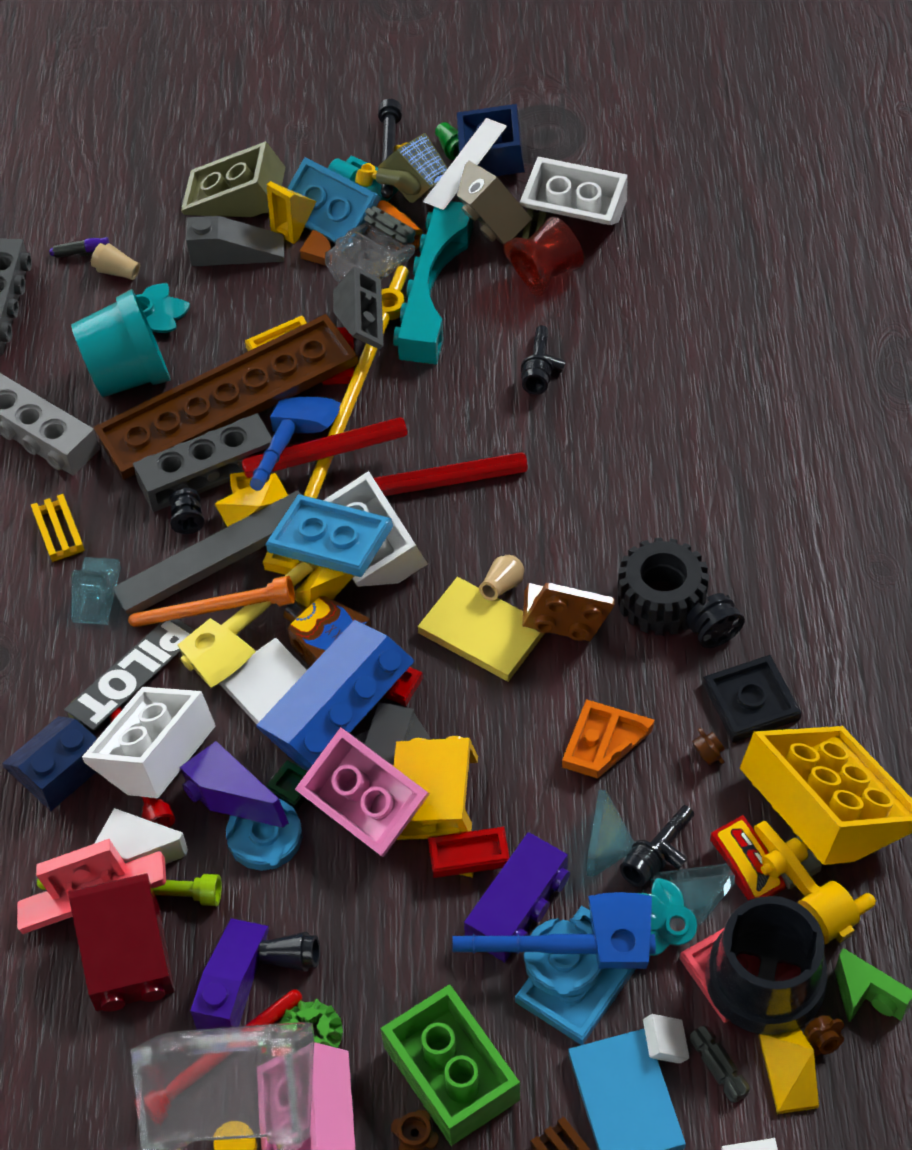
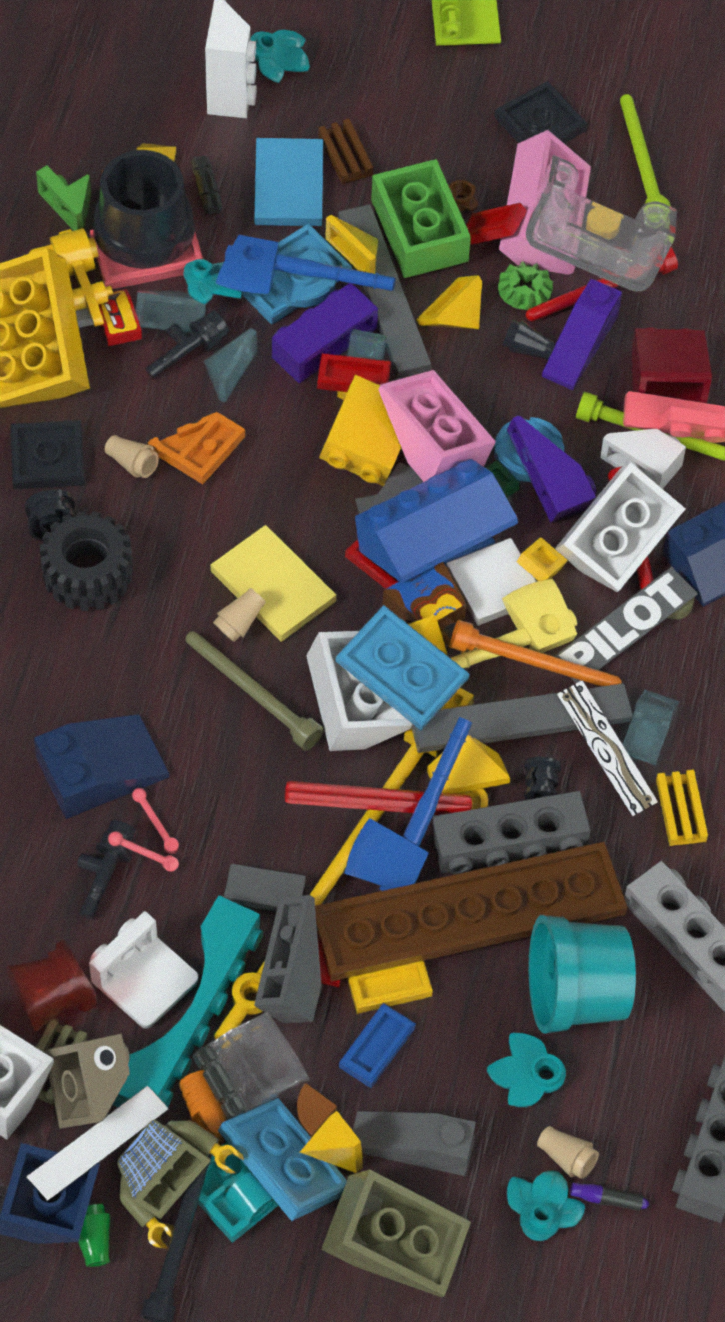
camera: 170 degrees left, 5 degrees up
(127, 234) = (544, 1200): none -> teal plate
(132, 553) = (607, 748): none -> sticker
(227, 706) = (541, 560): none -> yellow tile
(280, 300) = (377, 1045): none -> blue tile
(362, 1079) = (495, 223): none -> red tile
(386, 976) = (456, 305): none -> yellow slope
(403, 381) = (261, 887): none -> dark grey tile
(409, 502) = (304, 731): none -> olive piece
(452, 474) = (257, 756): red axle -> none
(463, 888) = (367, 345): none -> clear light blue tile
(471, 981) = (394, 314): none -> dark grey tile
(479, 296) = (141, 972): none -> white bracket
(494, 398) = (170, 844): none -> coral hinge
(513, 1006) = (353, 244): none -> yellow slope
(534, 357) = (169, 862): none -> coral hinge
(565, 610) = (195, 552): dark orange bracket -> none
(579, 432) = (98, 761): none -> dark blue slope
(666, 709) = (135, 457): none -> tan cone
(666, 1038) = (242, 205): white tile -> none
(708, 747) = (108, 411): reddish brown plate -> none

